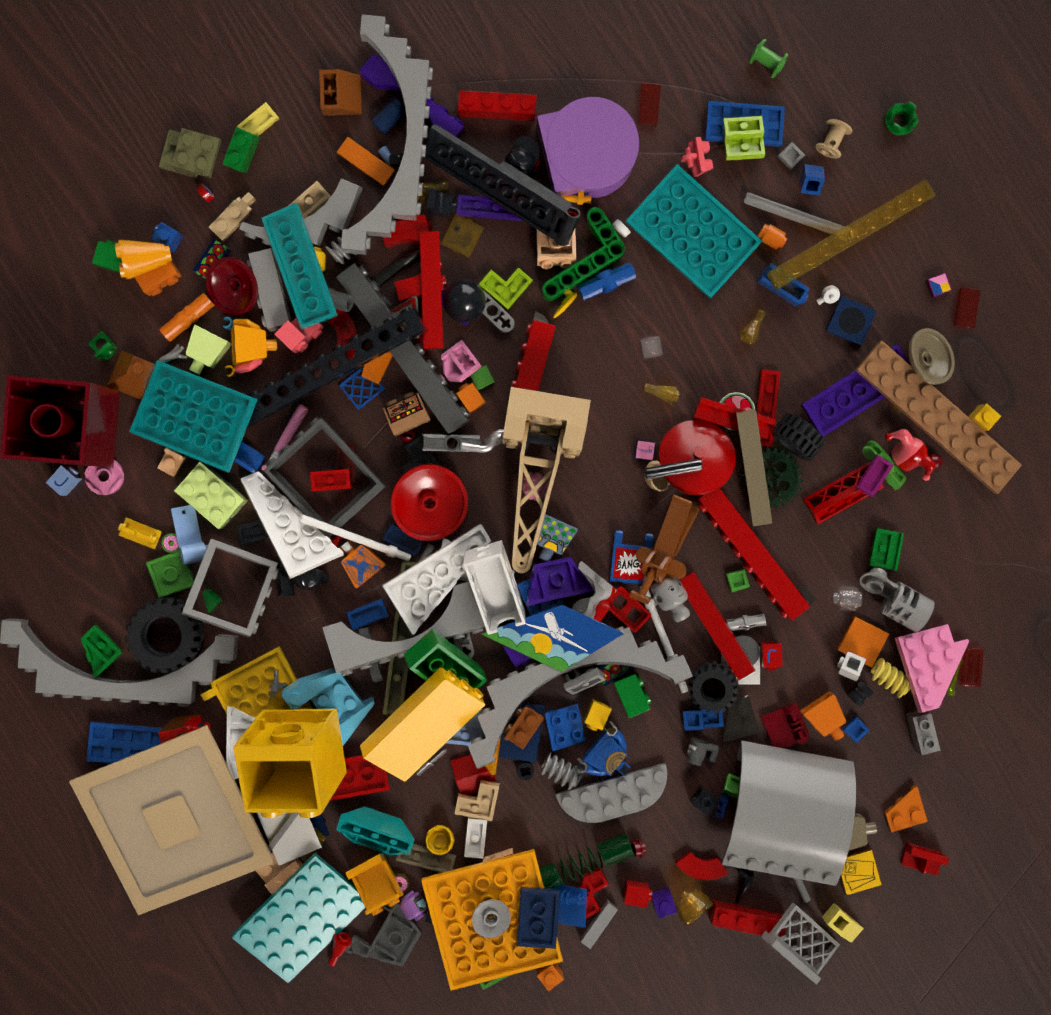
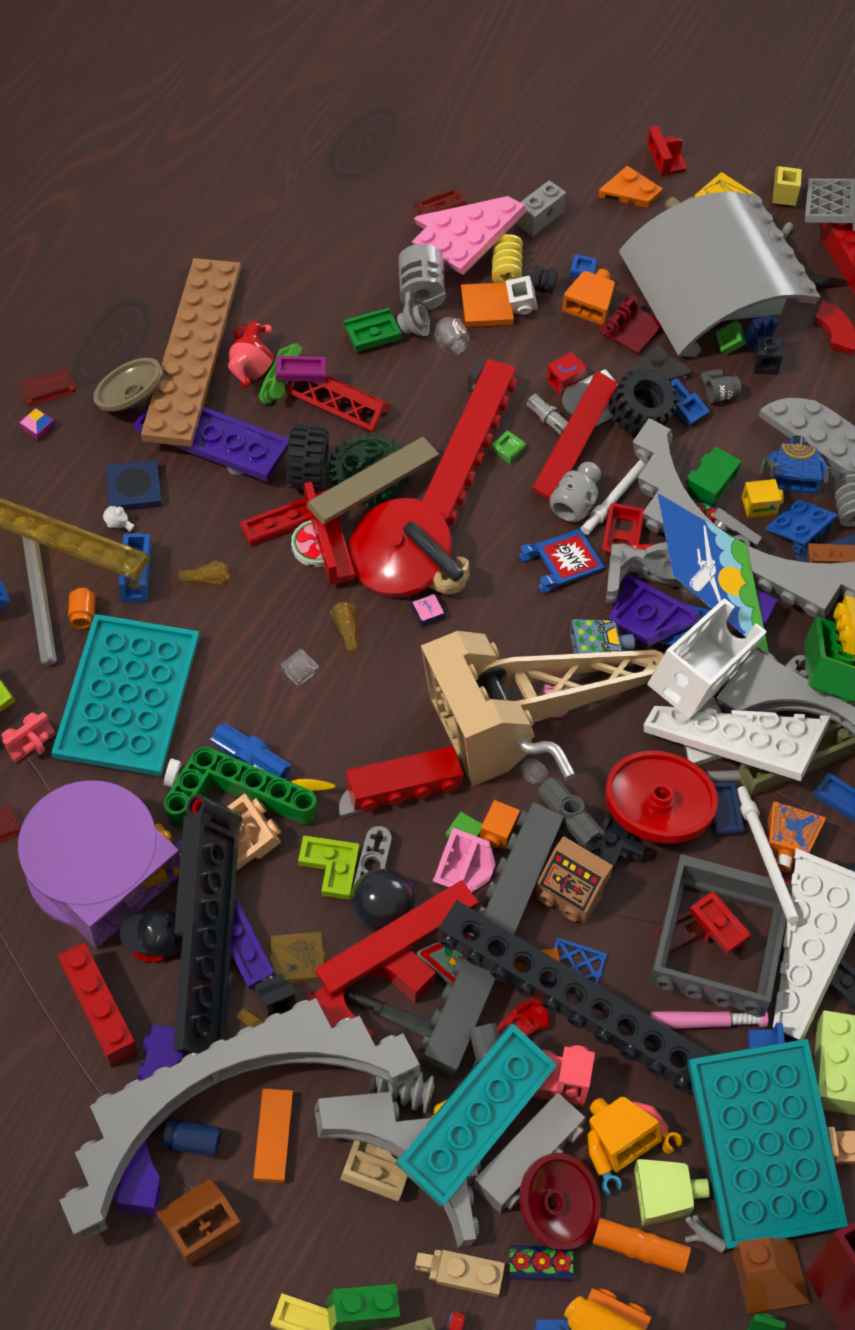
camera: 125 degrees left, 30 degrees down
(391, 159) = (247, 1094): arm -> none
(661, 560) = (542, 517): dark orange piece -> none
(984, 416) = (163, 310): yellow brick -> none

